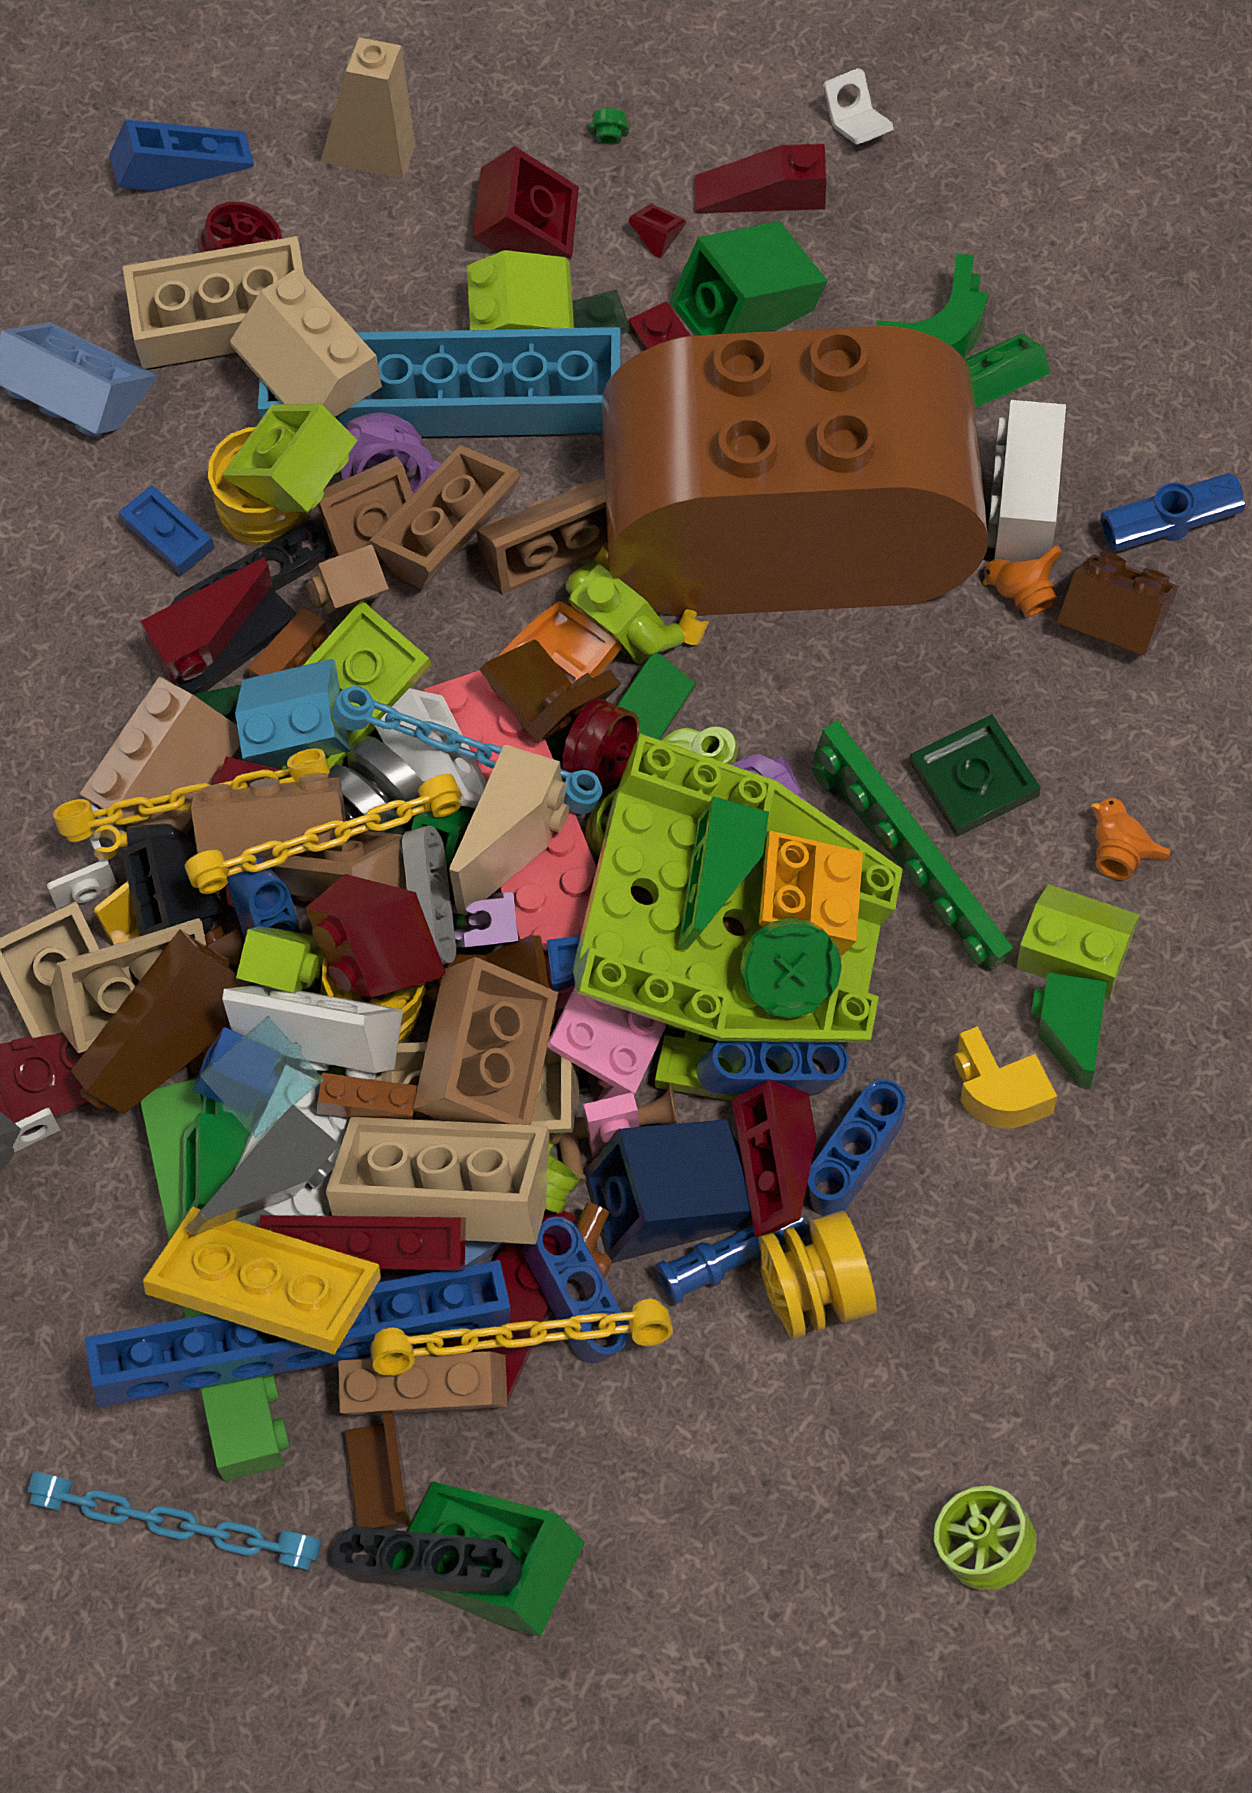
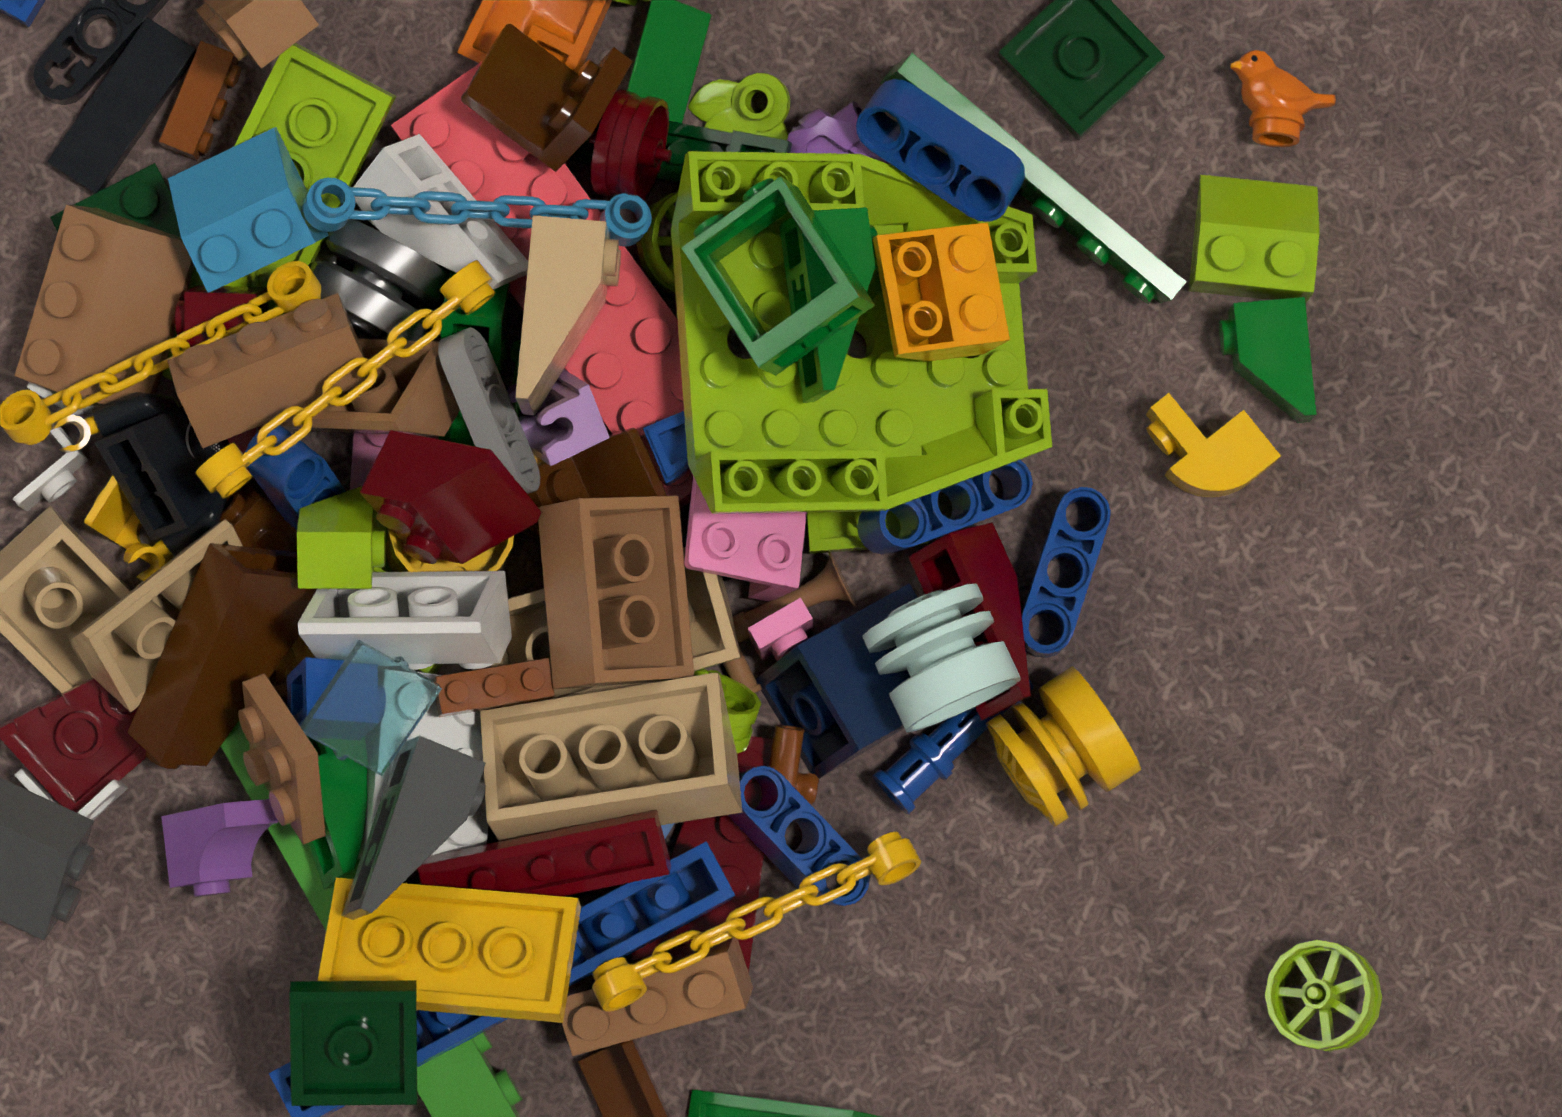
camera: 20 degrees left, 20 degrees up
(111, 1174) = (214, 844): none -> medium lavender arch
(158, 1322) = (353, 1042): none -> dark green plate
(181, 1104) = (282, 759): none -> medium nougat plate
(199, 627) = (83, 108): dark red slope -> none
(698, 867) = (808, 325): none -> green window
(732, 1163) = (941, 657): none -> light aqua wheel
(790, 967) = (942, 394): green tile -> none
(819, 790) = (928, 124): none -> blue beam

